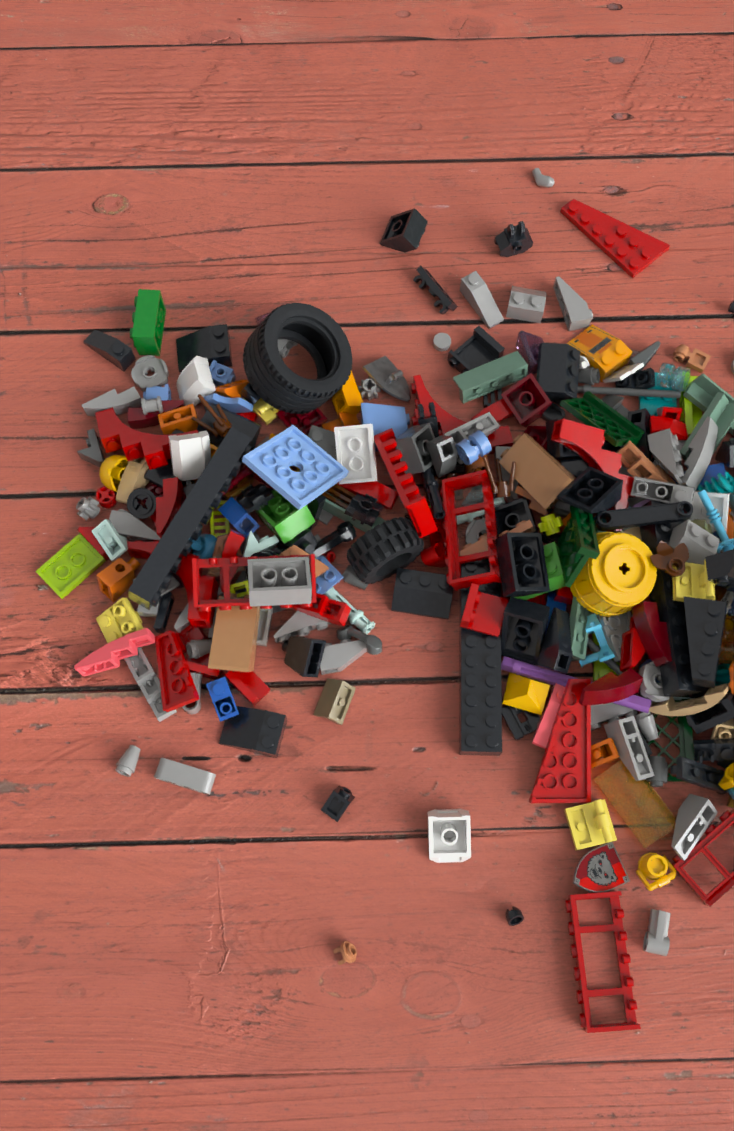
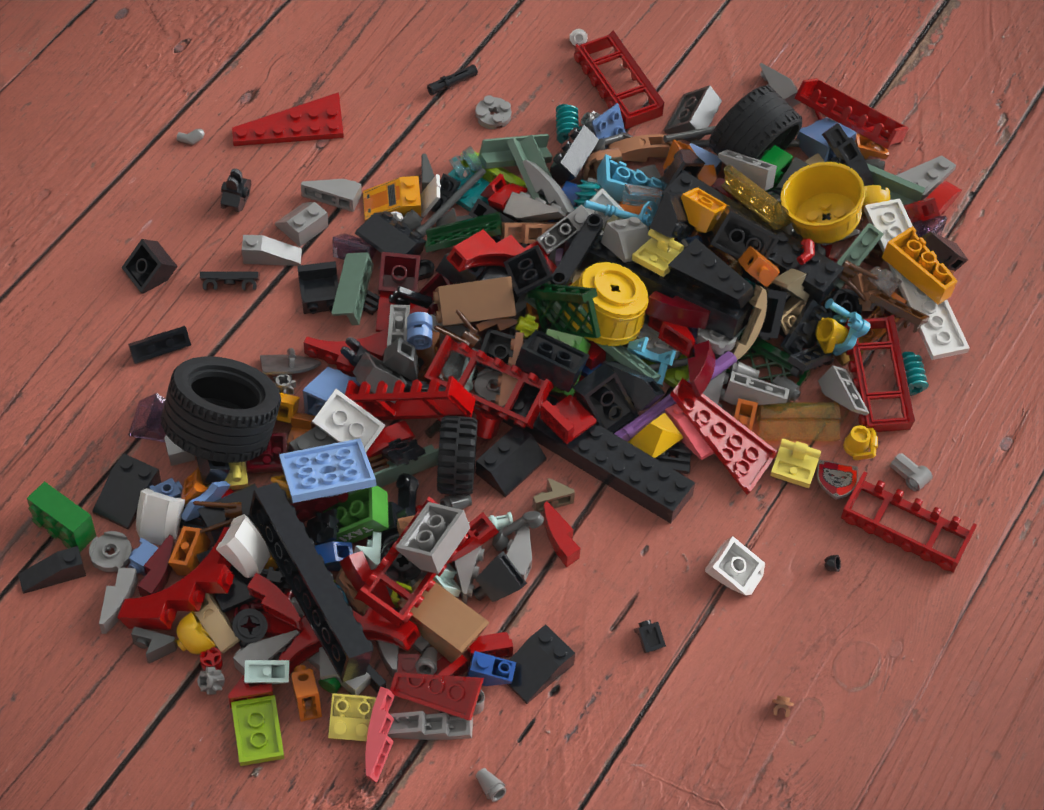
camera: 60 degrees left, 15 degrees down
(152, 405) = (156, 559): light grey bush -> none
(185, 776) = (538, 744): light grey beam -> none
(277, 617) = (447, 582): none -> light aqua slope
(334, 700) = (555, 586): dark tan panel -> none
(341, 284) = (159, 344): none -> black plate
(380, 674) = (560, 535): none -> red slope
(416, 650) = (557, 496): none -> dark tan slope
(442, 342) = (283, 305): light grey tile -> none
(509, 419) = (405, 297): none -> black tile
(668, 556) = (630, 254): reddish brown plate -> none
(696, 360) = (457, 142): nougat plate -> none

